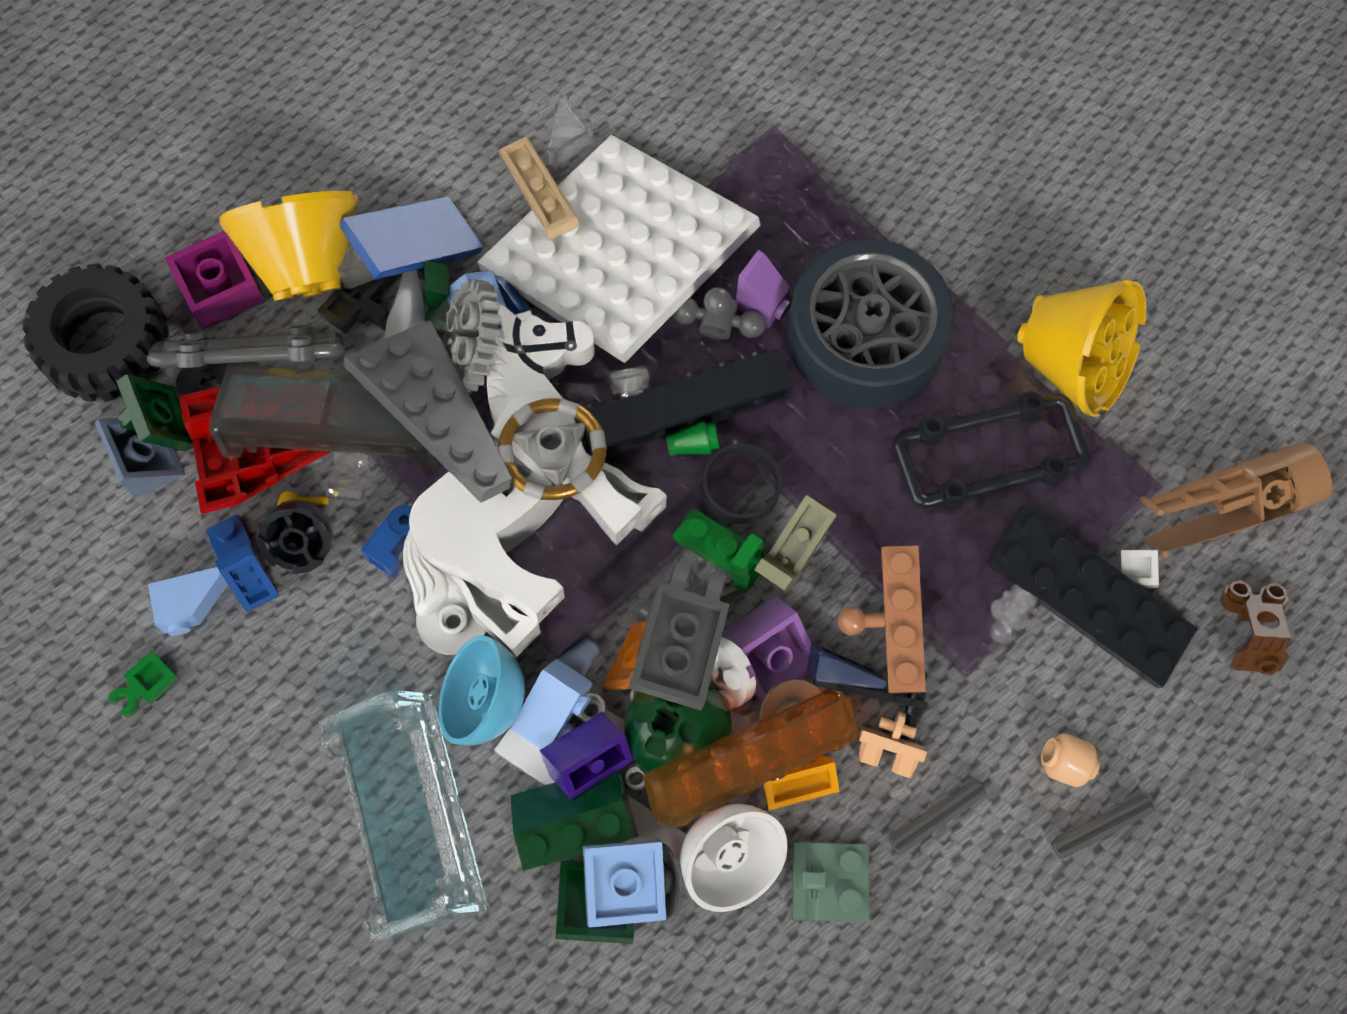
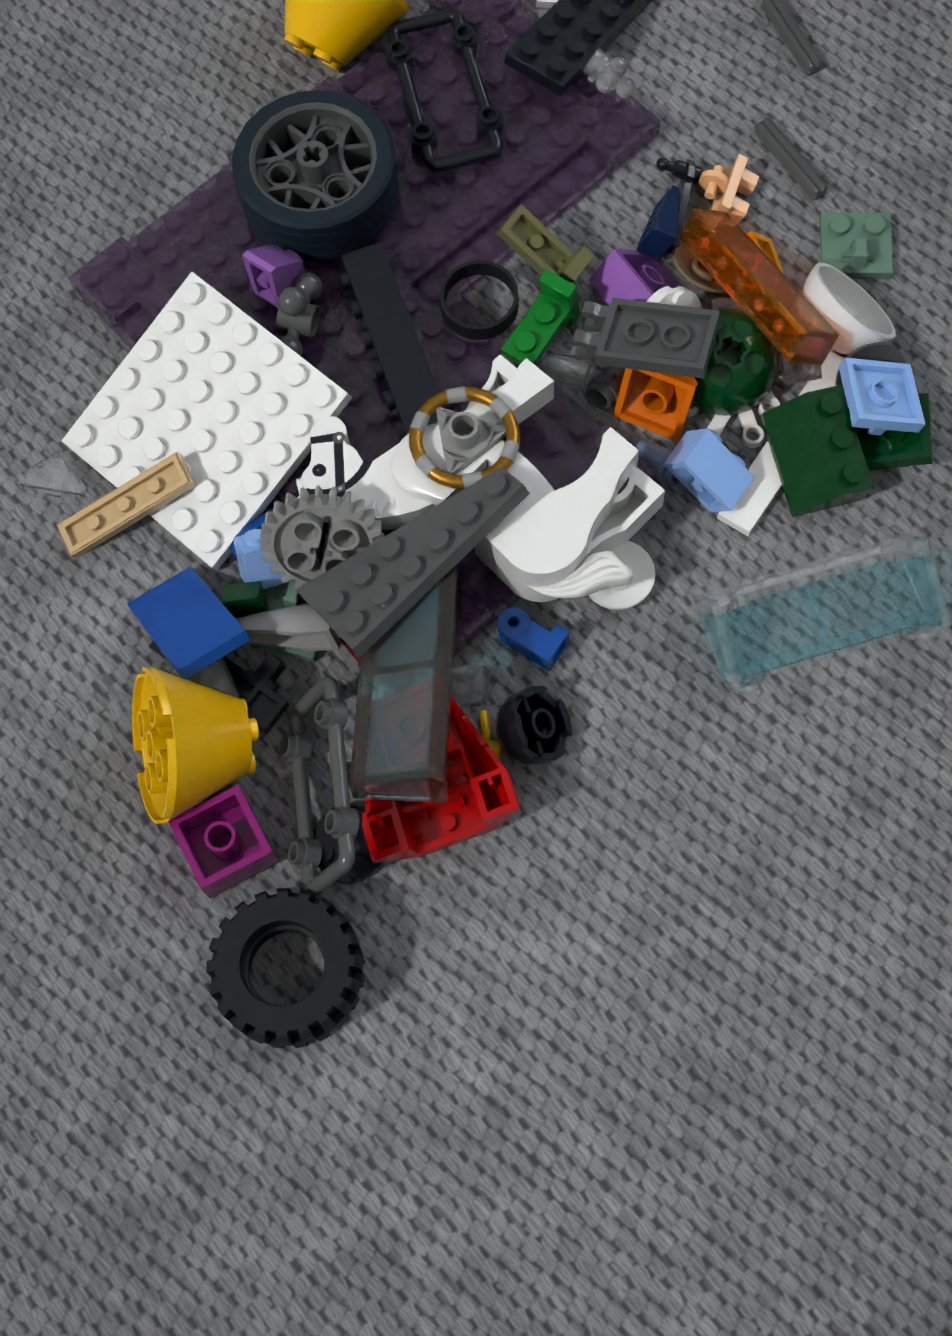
camera: 80 degrees left, 0 degrees up
(138, 464) = (433, 909): sand blue slope -> none
(147, 681) = (691, 877): green plate -> none
(153, 413) = (392, 888): dark green hinge -> none
(185, 600) = (603, 843): light blue slope -> none
(240, 563) = (558, 788): blue bracket -> none
(480, 692) = (701, 550): medium azure piece -> none
(586, 755) = (757, 436): dark purple brick -> none
(628, 380) = (371, 390): clear slope -> none
(695, 439) = (433, 336): green cone -> none
(900, 618) = (614, 169): nougat plate -> none
(1070, 760) = (736, 50): light nougat head -> none

